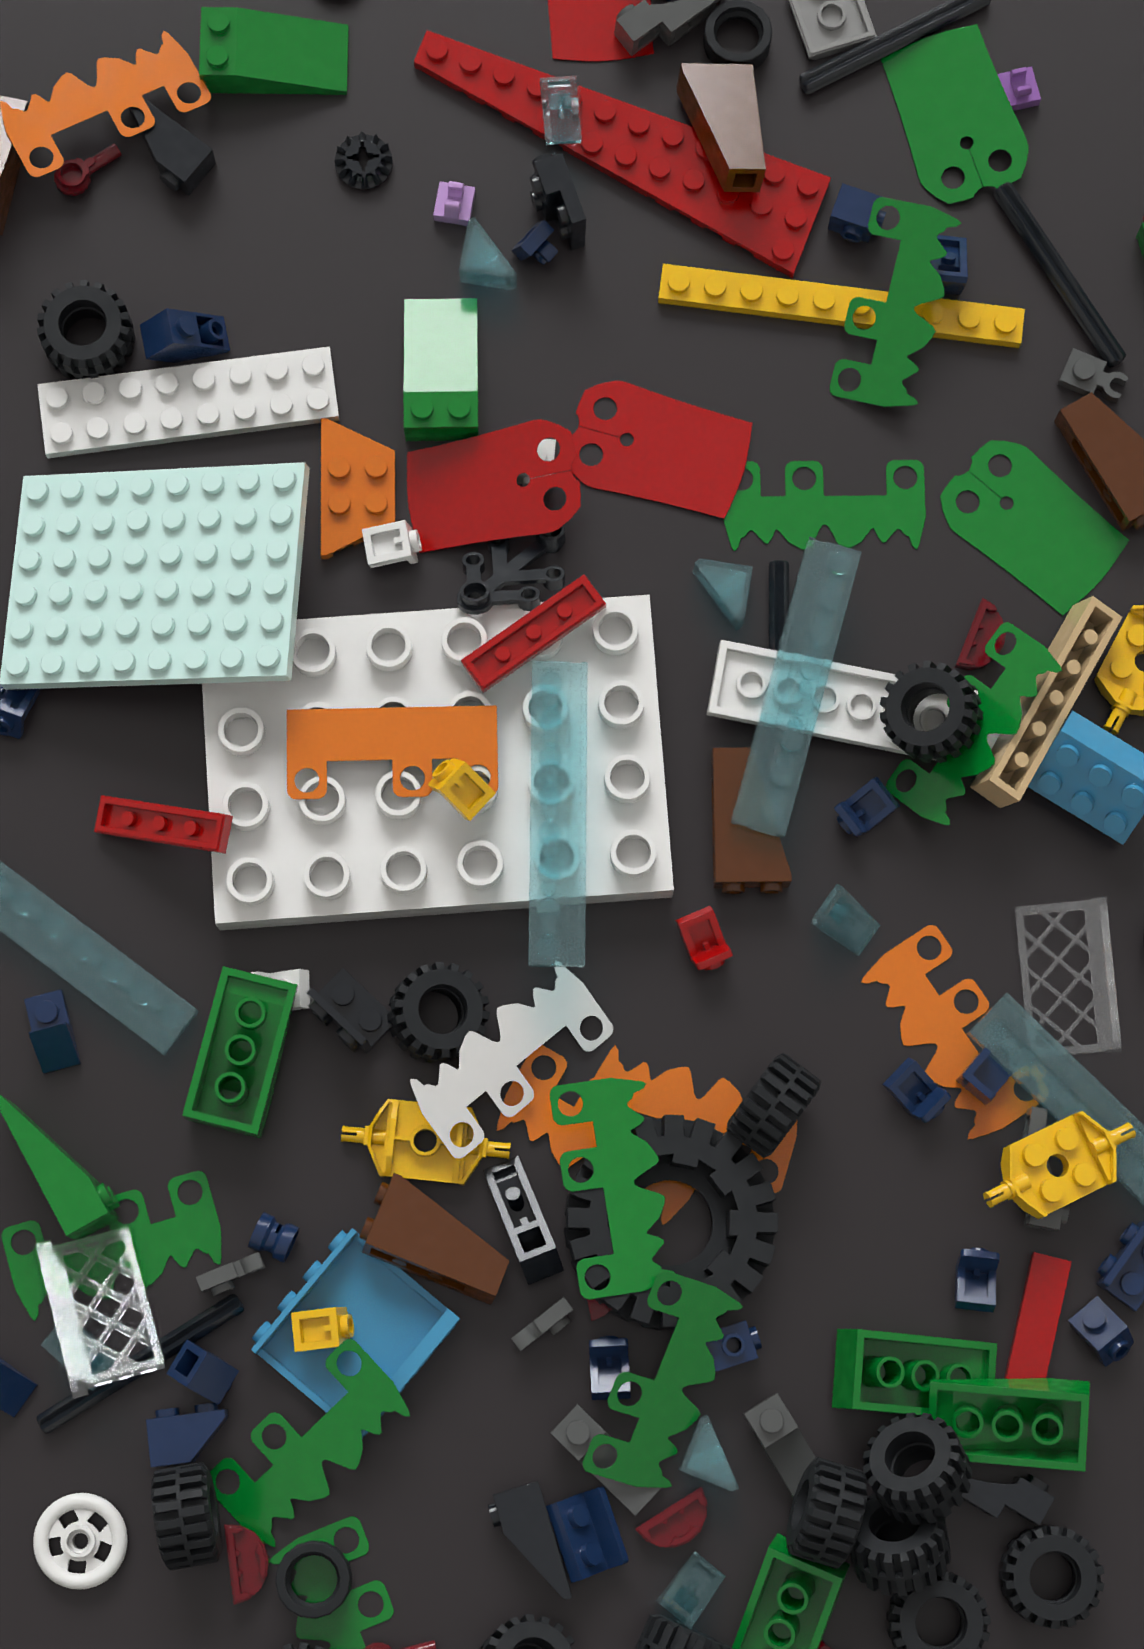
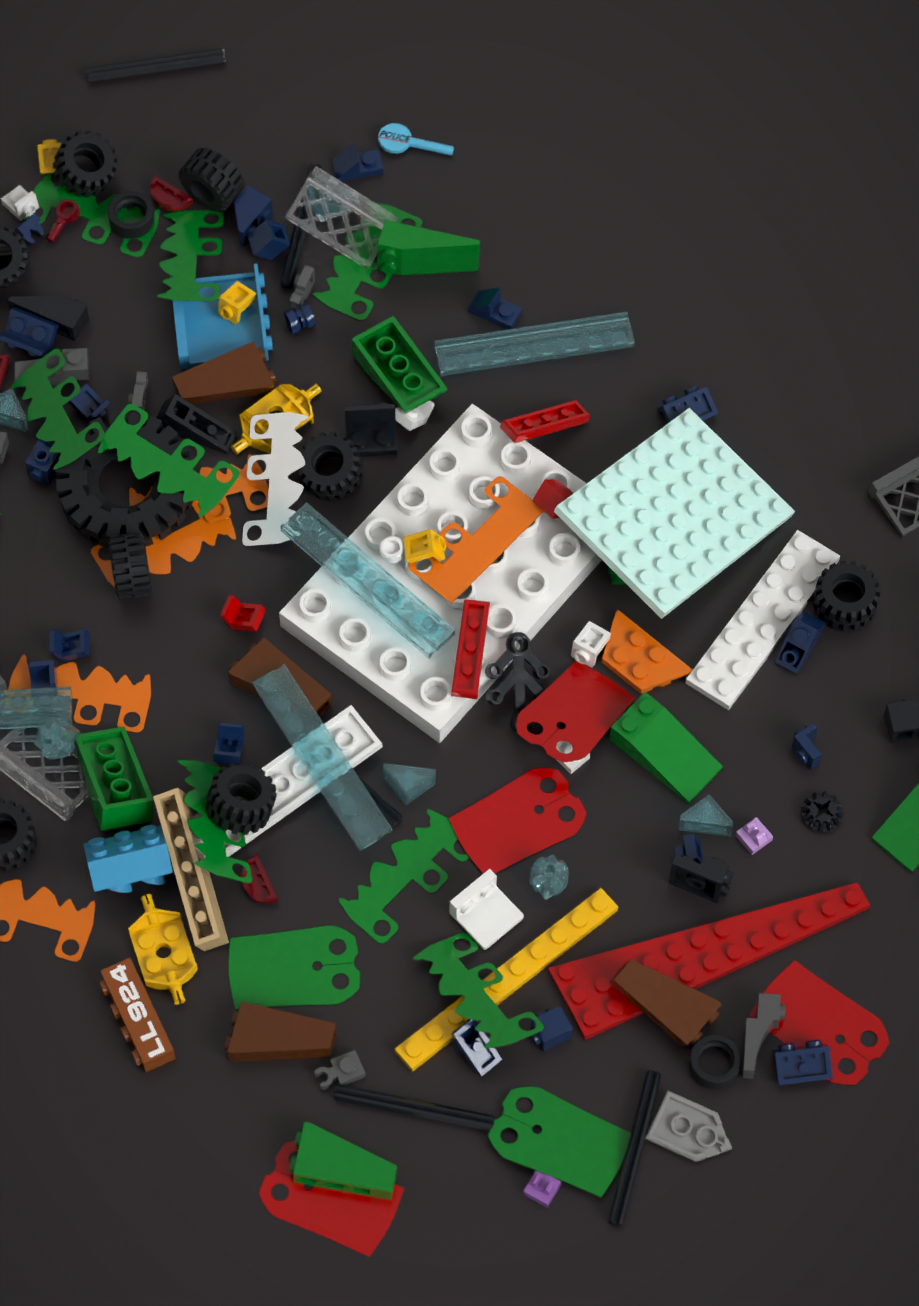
camera: 135 degrees right, 15 degrees down
(96, 1570) = (247, 125): white plate -> none
(264, 706) = (550, 495): none -> red panel
(312, 225) = (804, 748): none -> dark blue bracket
(493, 825) = (392, 549): none -> white tile
(561, 110) = (755, 923): clear light blue slope -> none
(698, 352) = (548, 883): none -> clear light blue brick
(794, 384) = (485, 910): none -> white bracket
(845, 920) = (185, 686): clear light blue slope -> none
(1018, 891) = (114, 779): none -> green slope
(1042, 983) = (56, 738): none -> clear light blue brick

